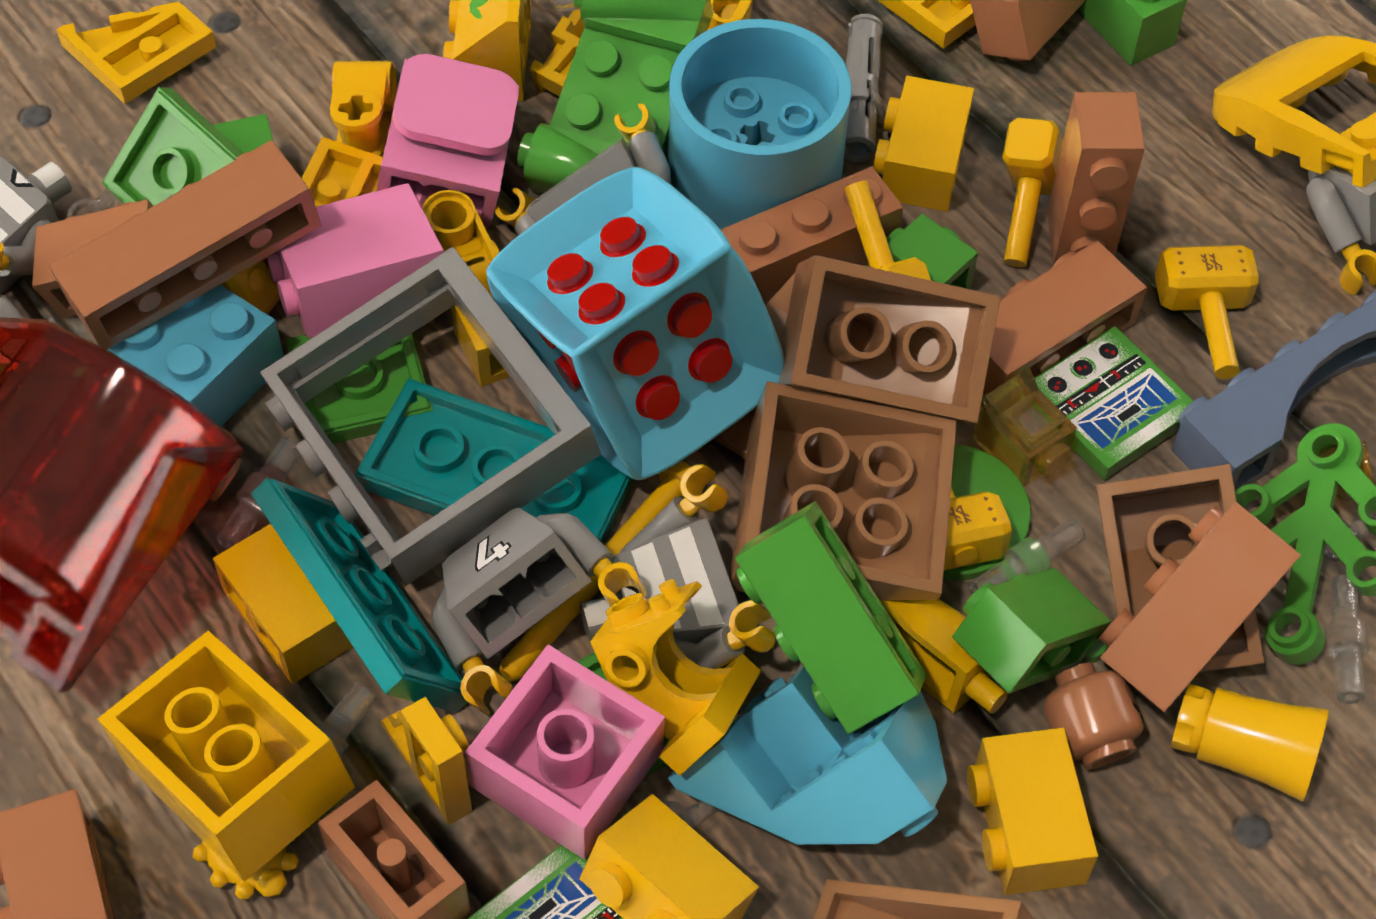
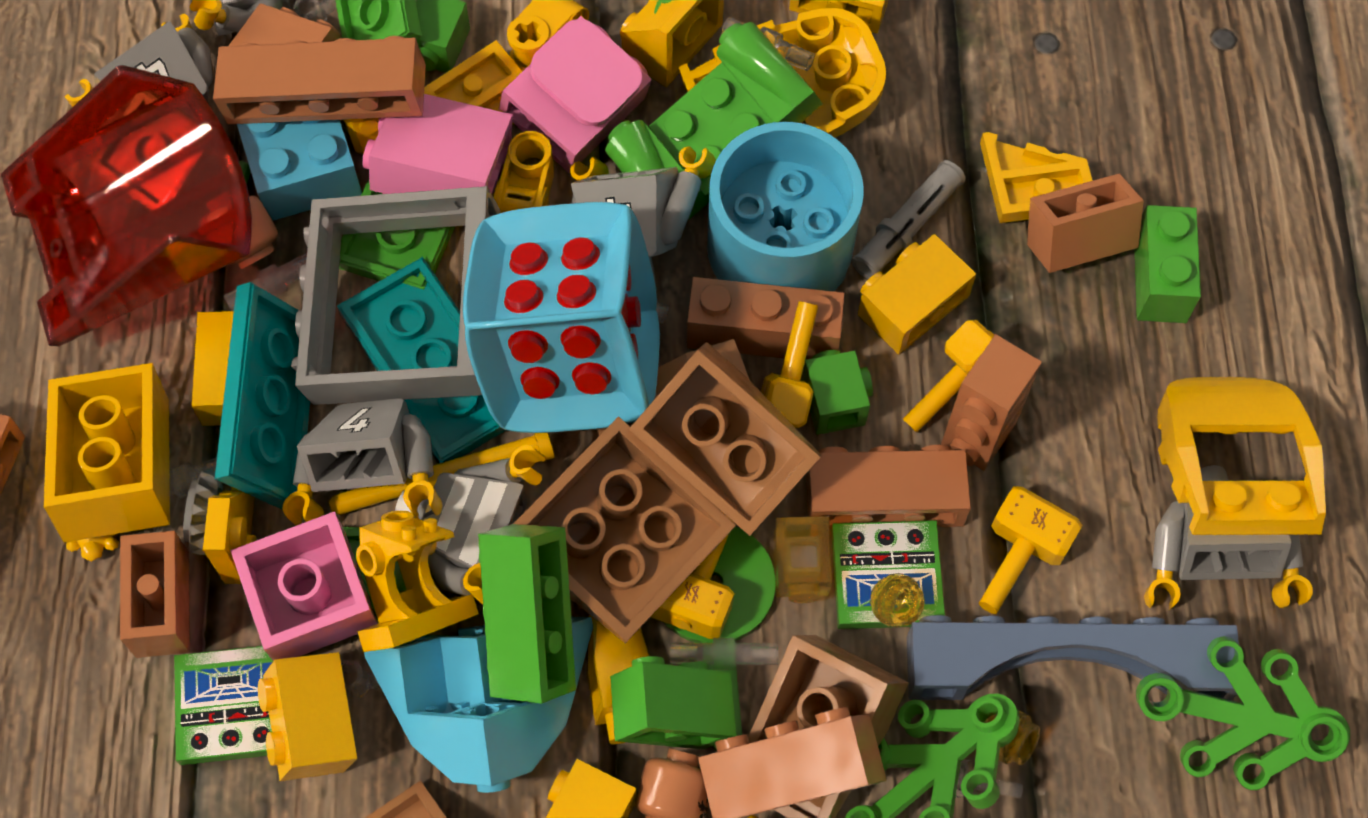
camera: 35 degrees right, 10 degrees up
(380, 751) = (196, 509): none -> light grey gear
(1149, 407) = (897, 600): none -> clear yellow plate

